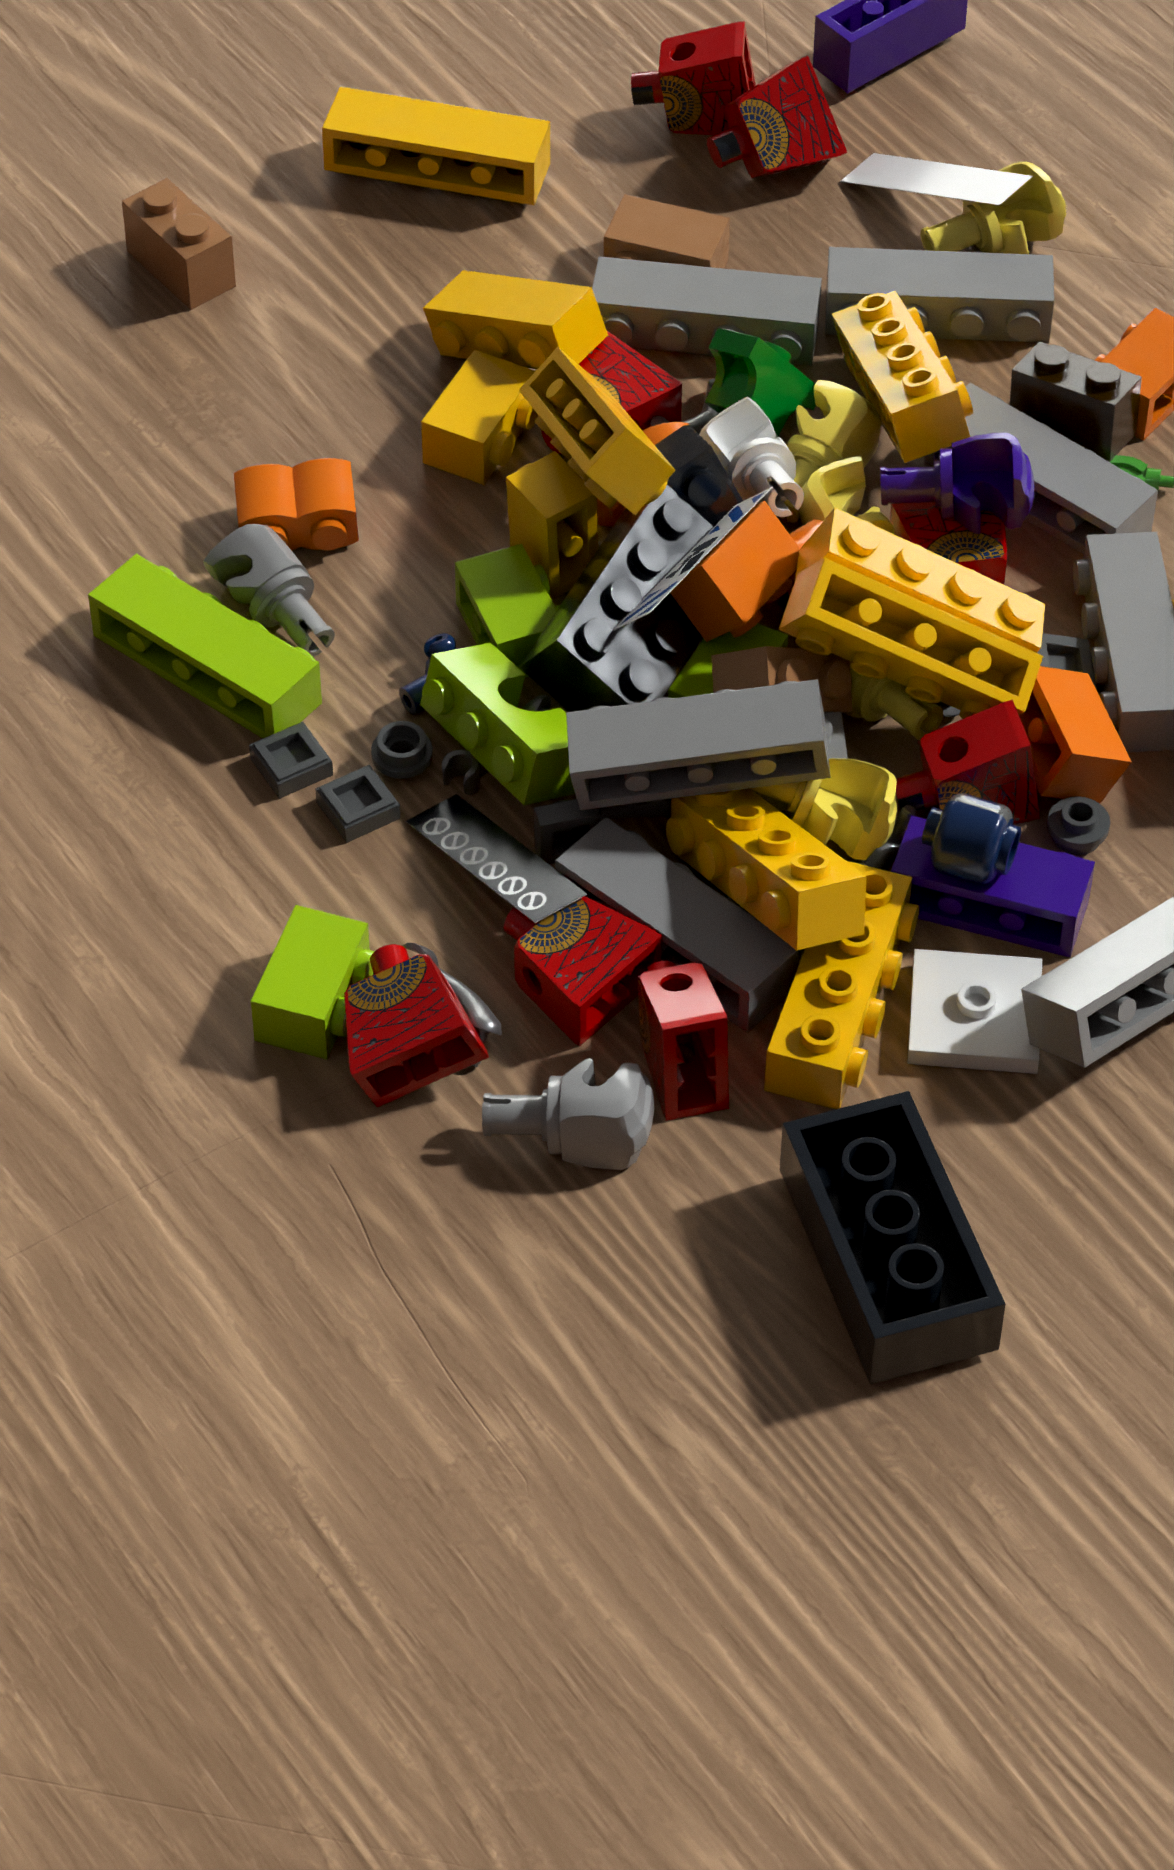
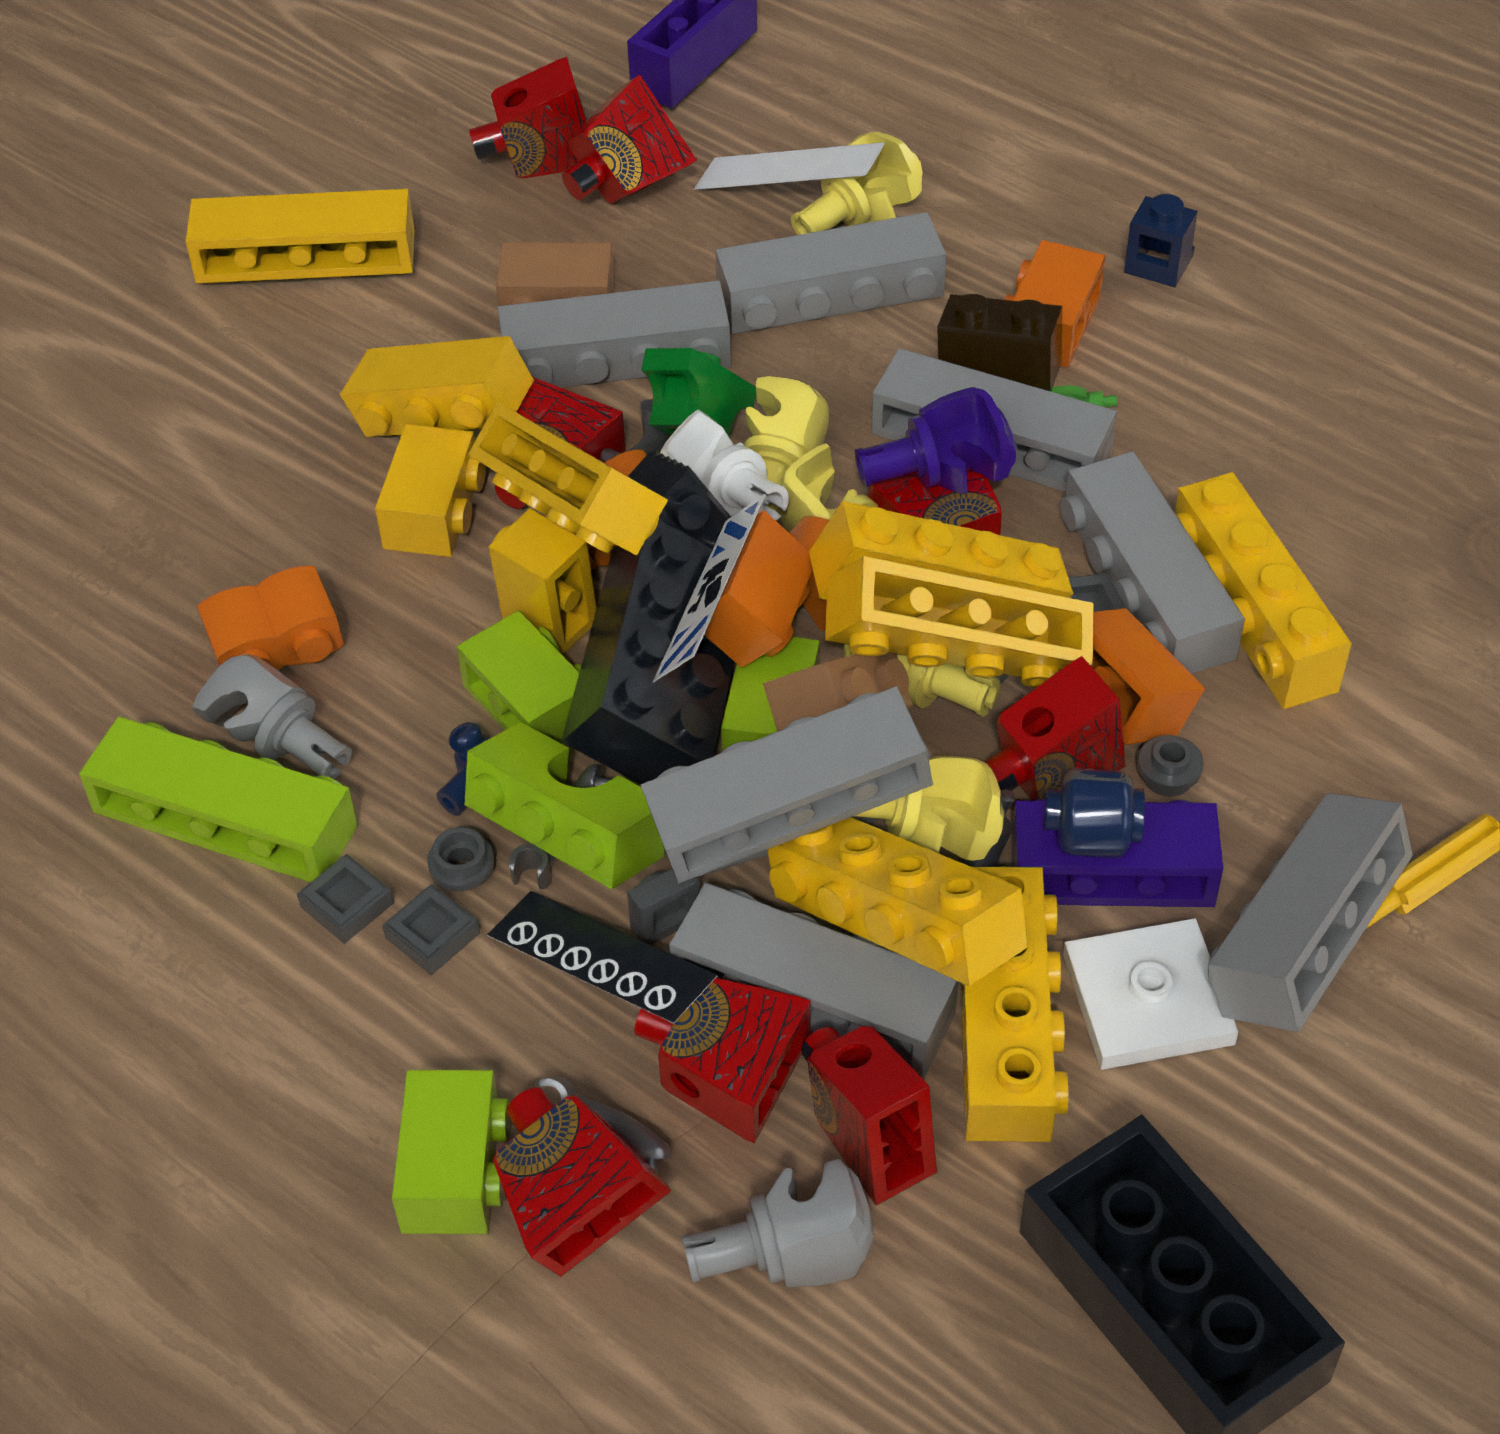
camera: 15 degrees left, 0 degrees up
(179, 243) = (71, 385): medium nougat brick -> none
(903, 375) = (836, 354): yellow brick -> none

